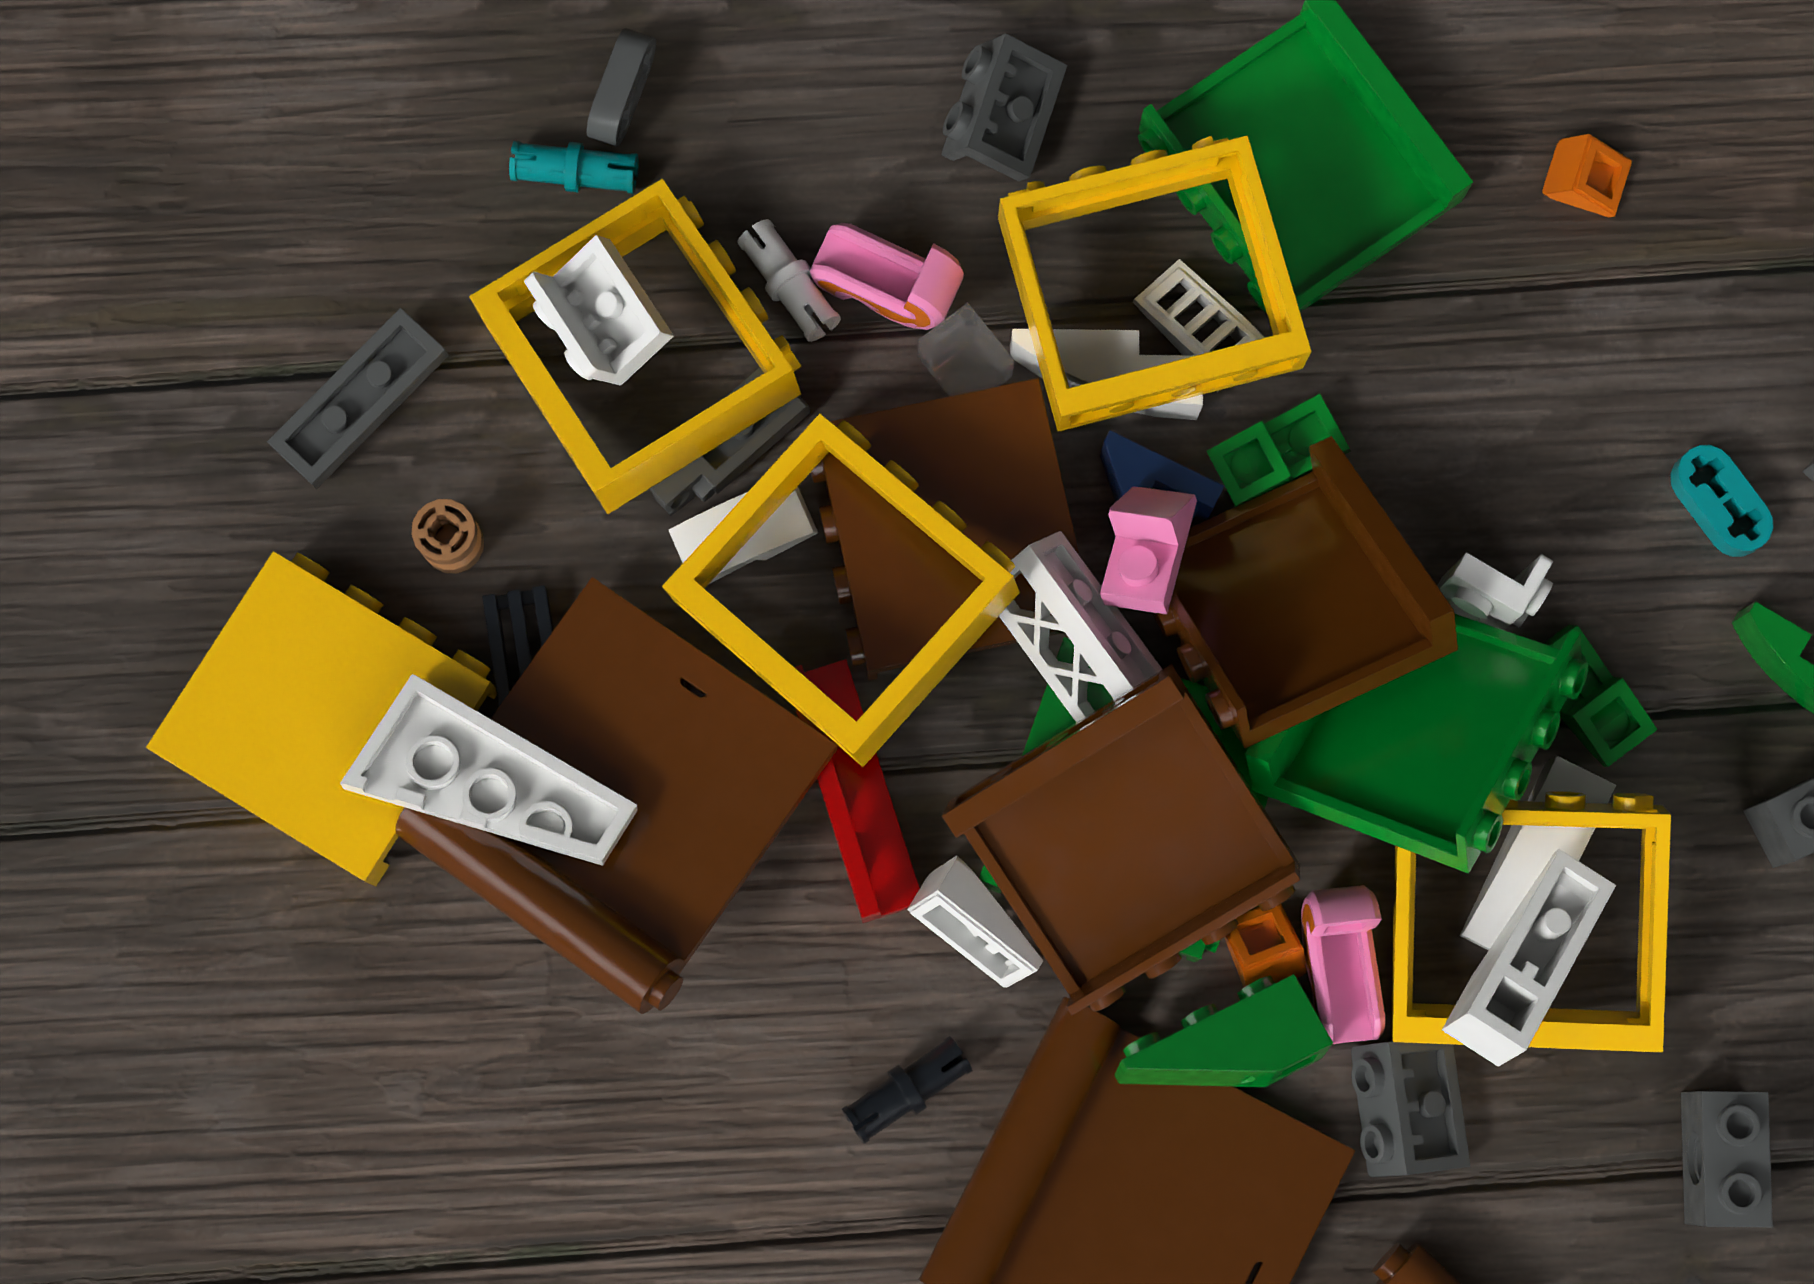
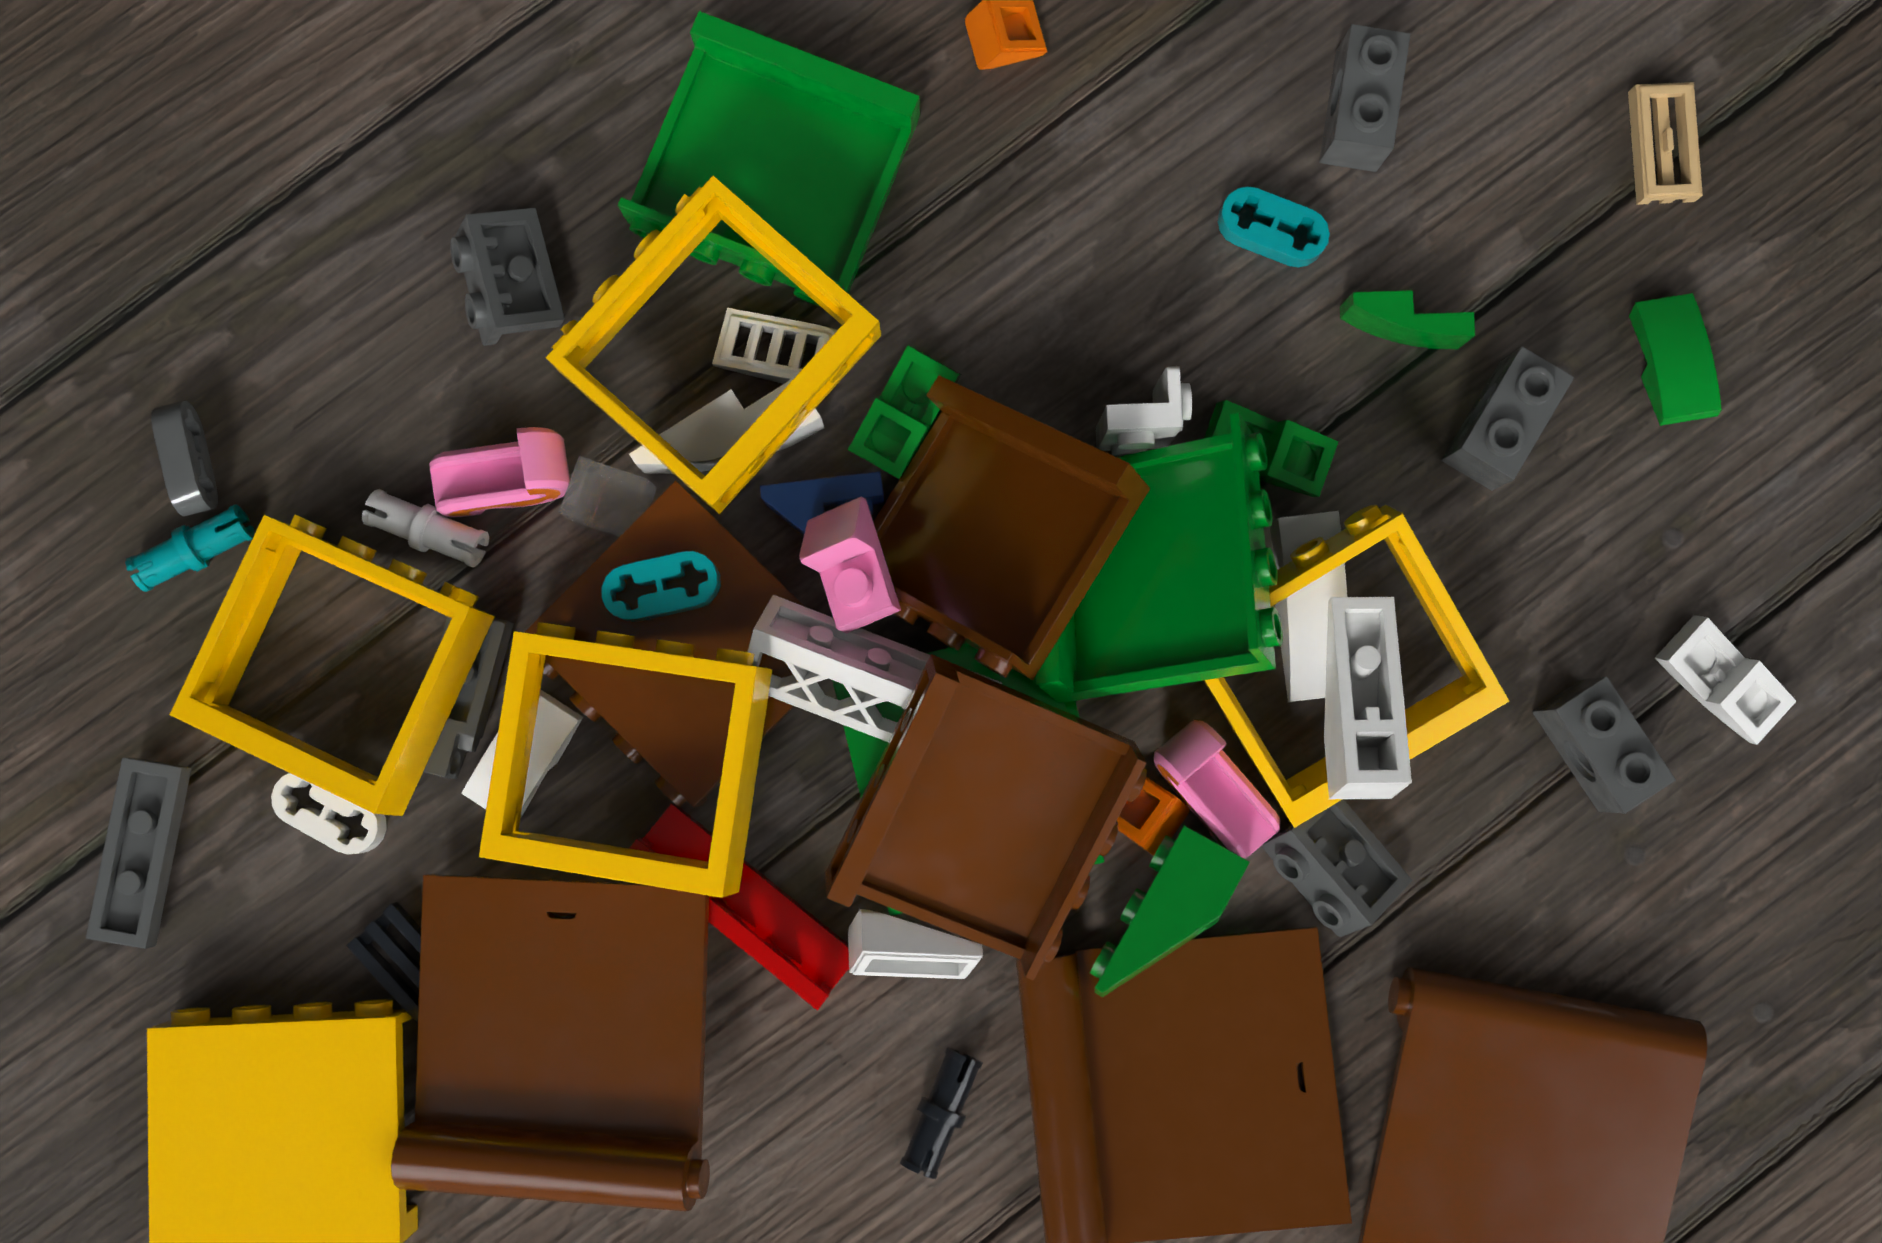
camera: 35 degrees left, 5 degrees up
(451, 548) = (298, 910): medium nougat wheel -> none
(475, 772) = (426, 1104): white wing -> none
(529, 478) = (322, 824): none -> white beam
(600, 313) = (280, 665): white bracket -> none
(973, 446) = (657, 572): none -> teal beam

